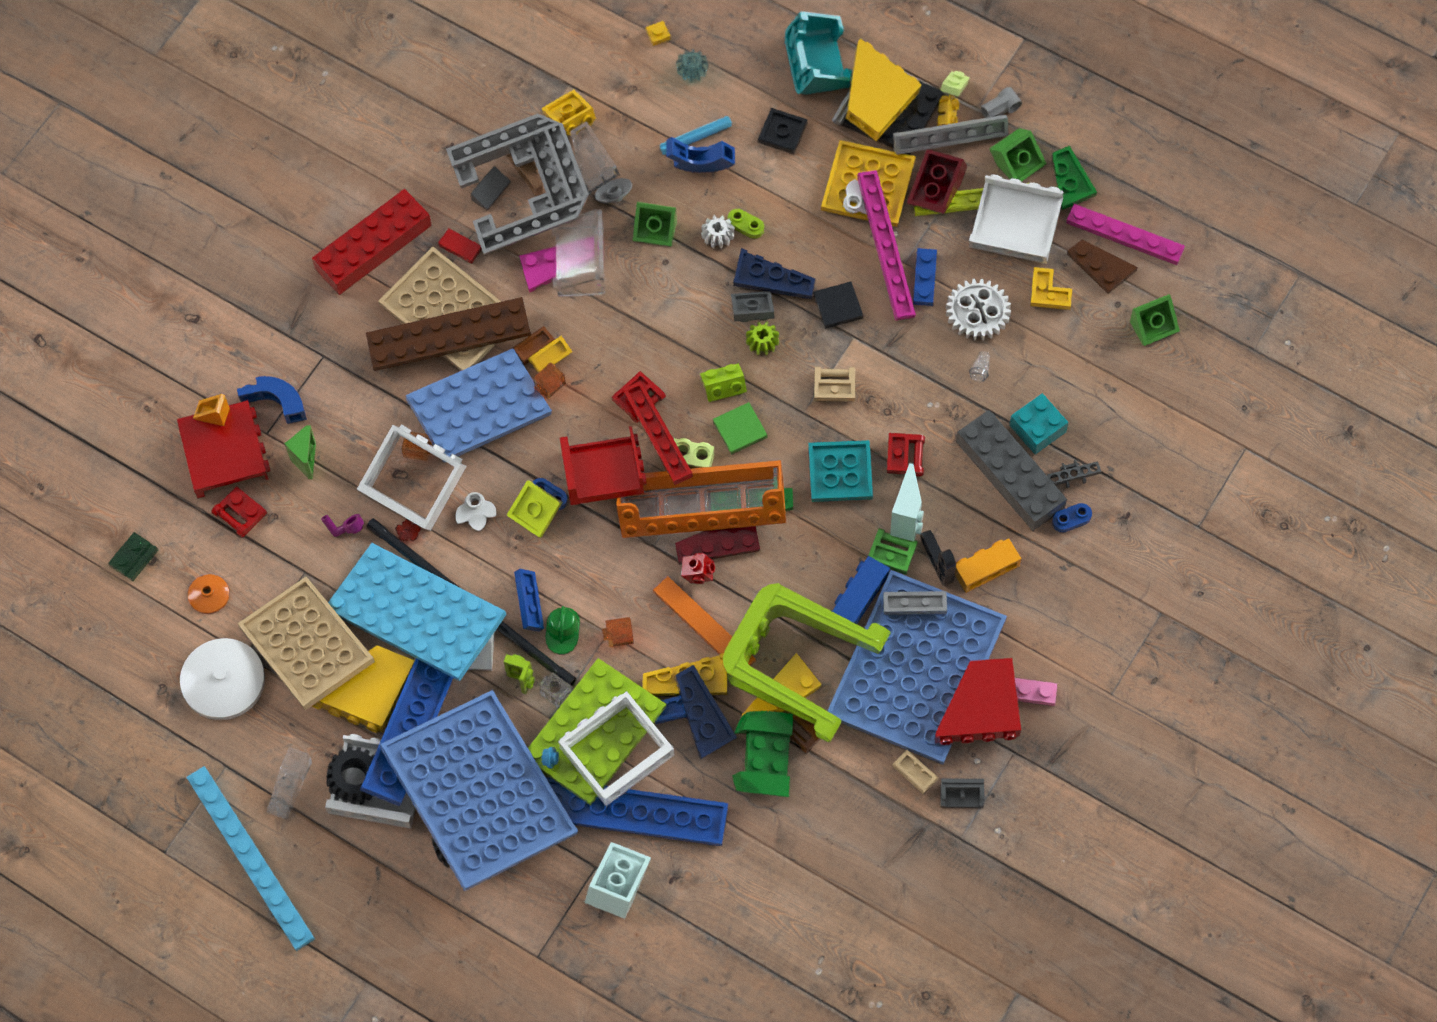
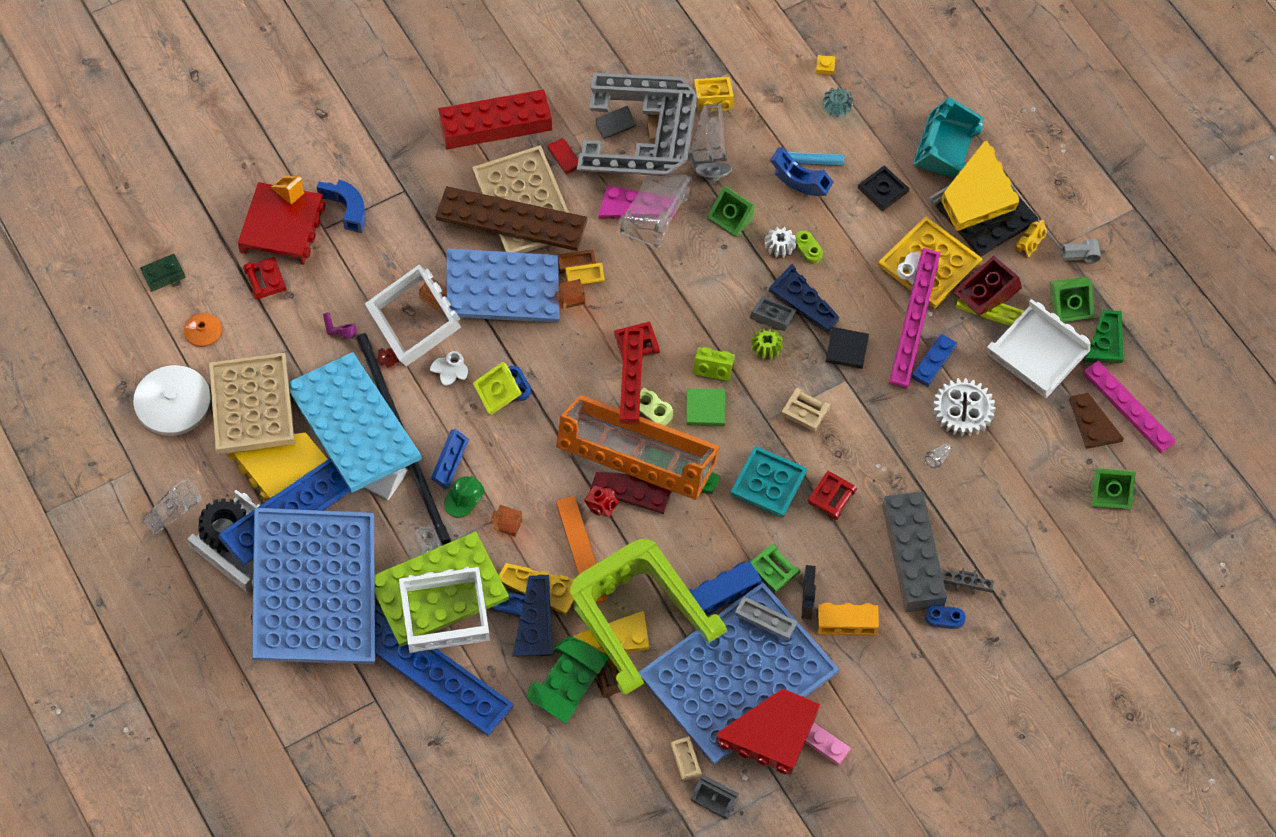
camera: 25 degrees right, 5 degrees down
(250, 858) = (107, 552): medium azure plate -> none
(302, 451) = (342, 253): bright green slope -> none
(519, 669) = (407, 511): lime bracket -> none
(550, 757) = (386, 589): dark azure plate -> none
(603, 469) = (569, 382): red panel -> none
(617, 880) = (384, 719): light aqua slope -> none
(907, 513) = (802, 537): light aqua slope -> none
(950, 134) = (1023, 254): light grey plate -> none
(955, 83) = (1051, 215): yellowish green plate -> none
(1038, 423) = (960, 525): teal brick -> none
(1047, 296) = (1029, 421): yellow plate -> none

